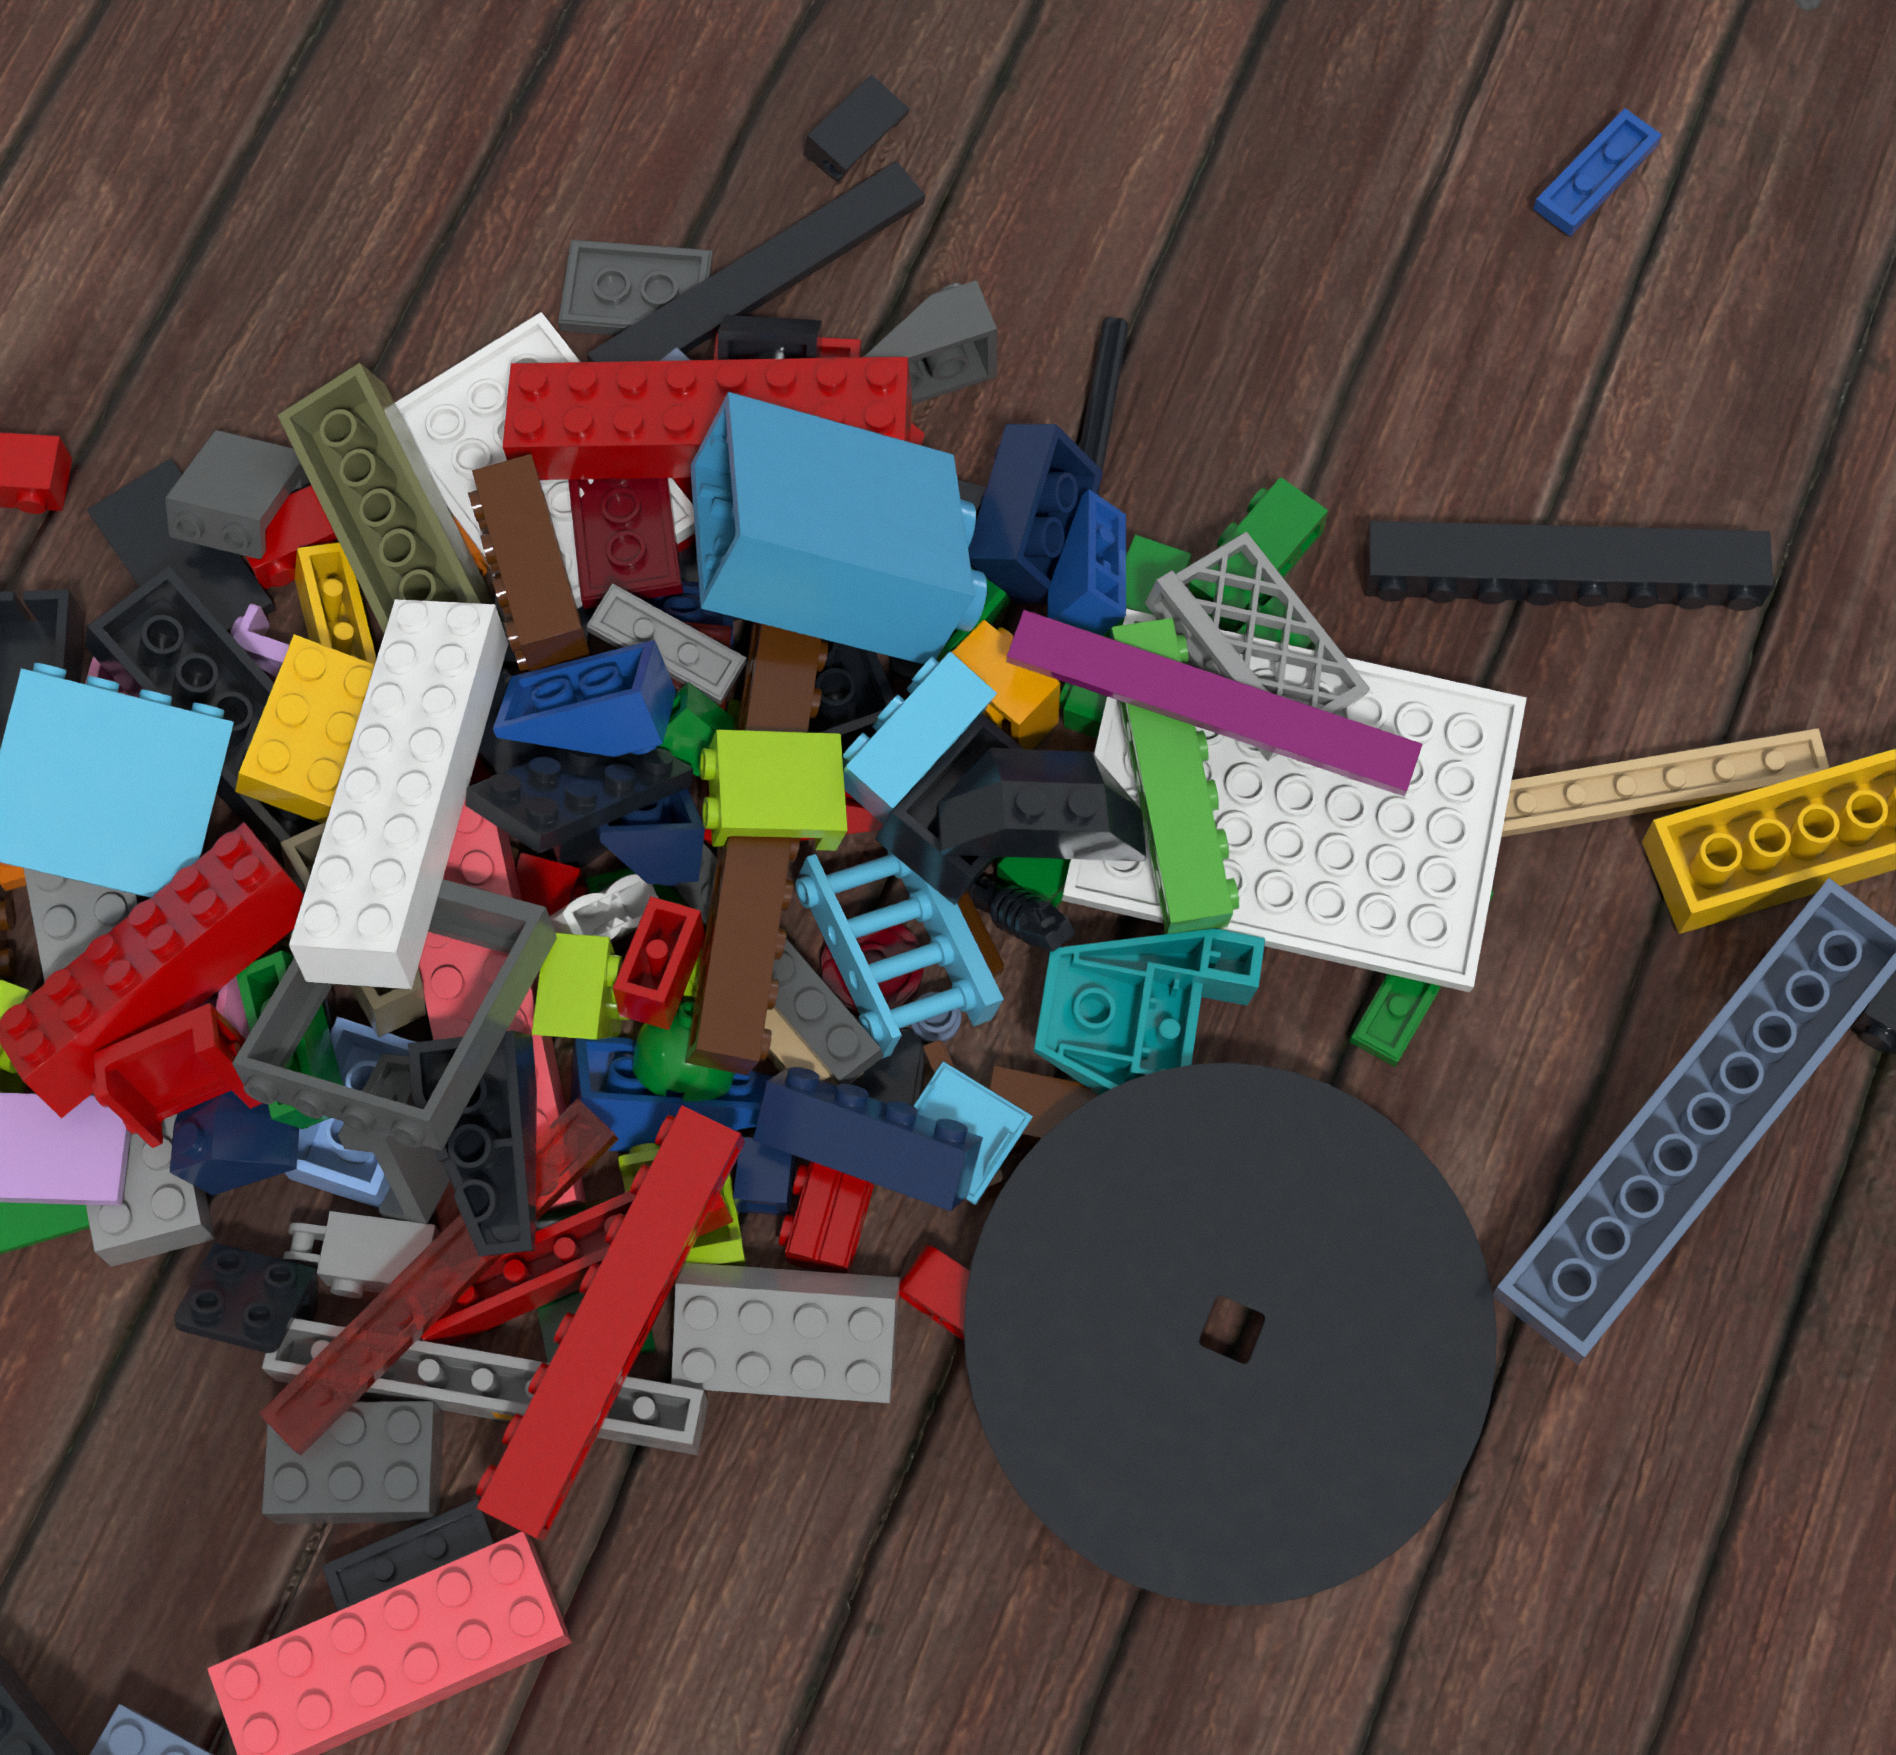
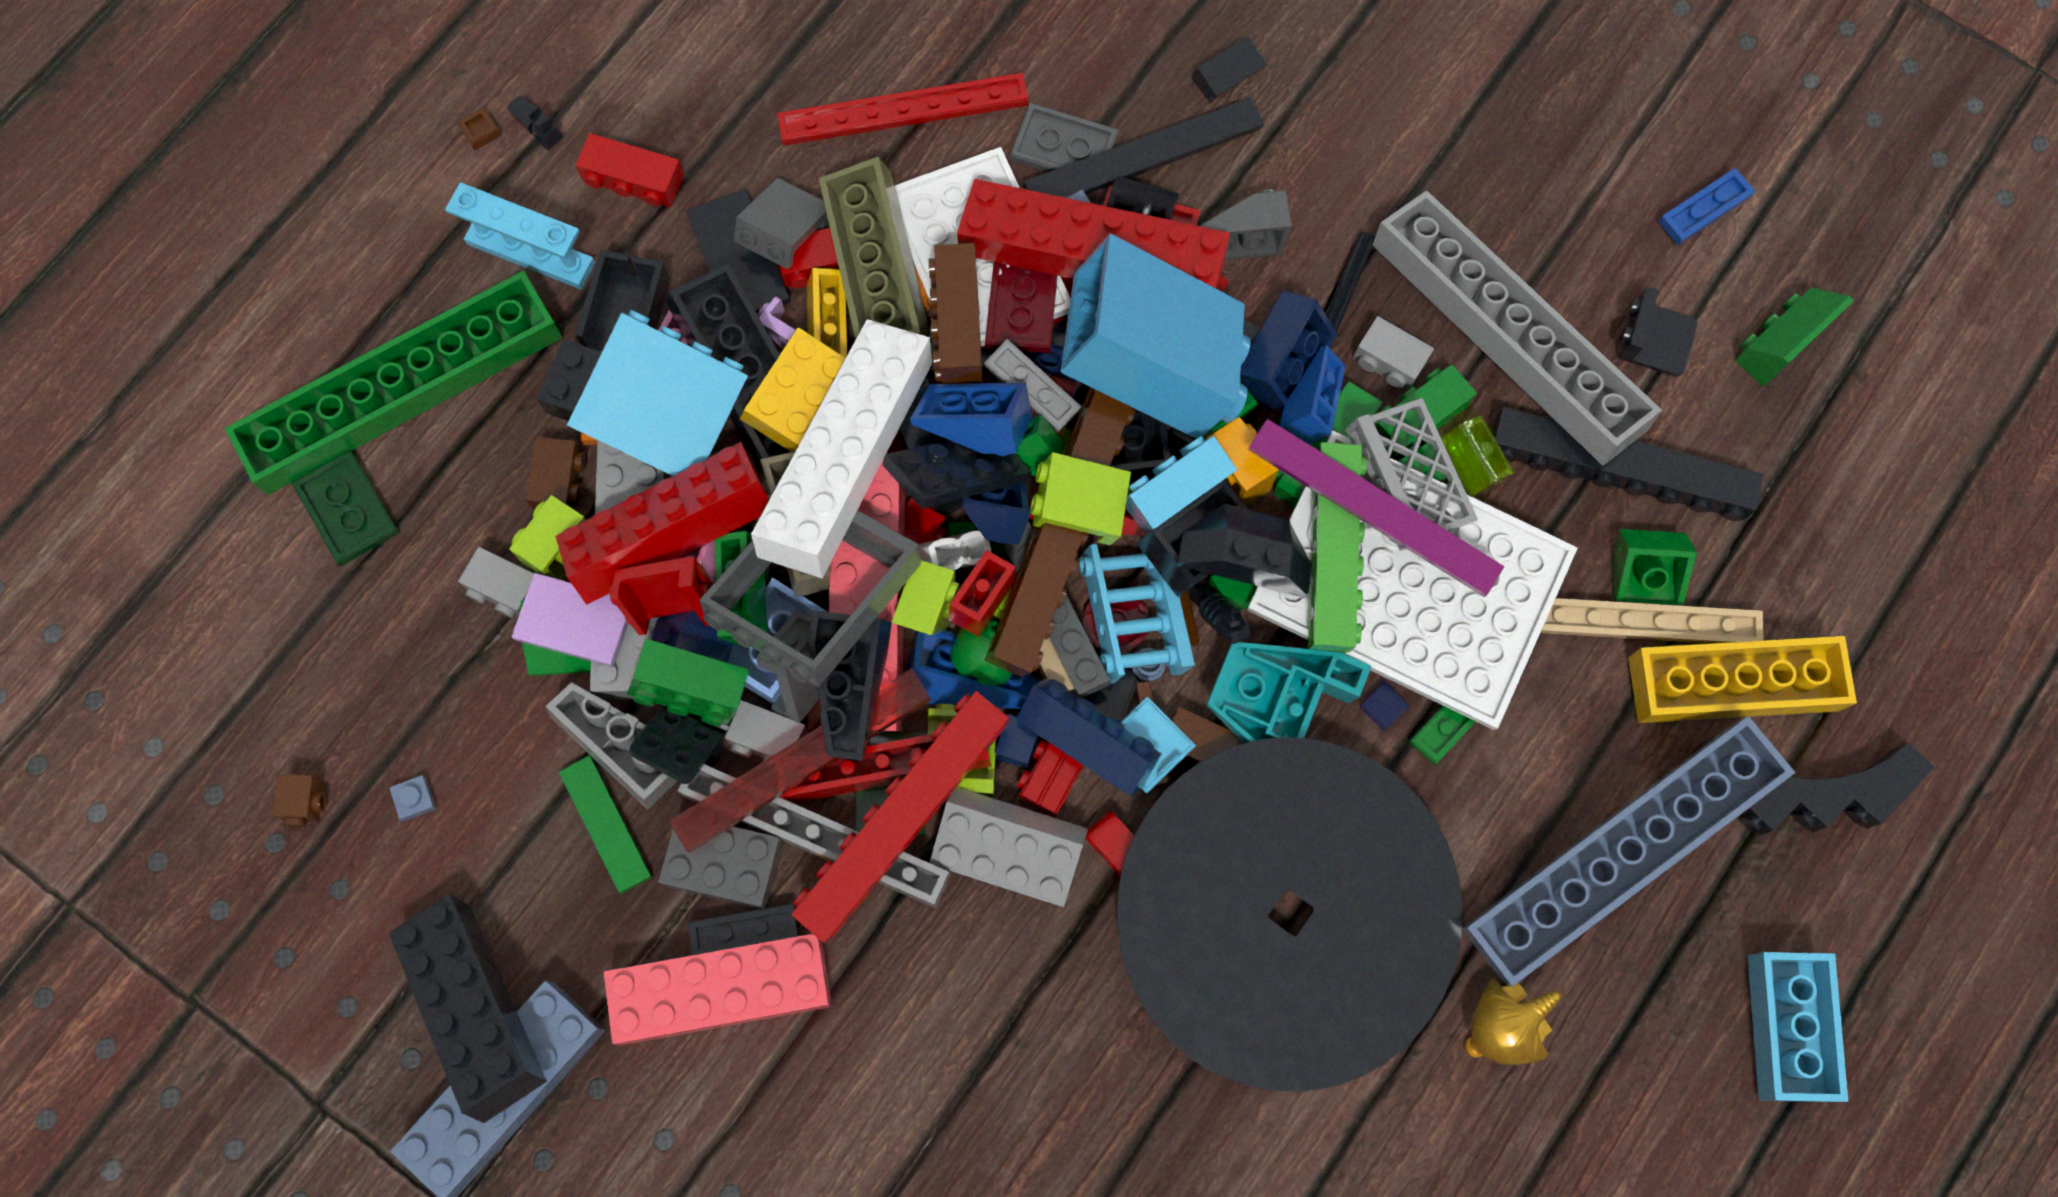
camera: 10 degrees right, 5 degrees up
(135, 1317) = (607, 738): none -> light grey wedge
(162, 1451) = (605, 824): none -> green tile
(241, 1199) = (687, 683): none -> green brick
(381, 291) = (902, 109): none -> red tile
(1191, 482) = (1392, 354): none -> light grey brick
(1301, 997) = (1384, 706): none -> clear blue tile
(1348, 600) = (1476, 456): none -> clear neon green brick
(1360, 403) = (1516, 328): none -> light grey brick
(1570, 371) = (1656, 335): none -> black bracket
(1596, 1417) = (1510, 1029): none -> pearl gold piece
(1643, 702) = (1652, 567): none -> green slope
(1760, 324) = (1790, 333): none -> green slope

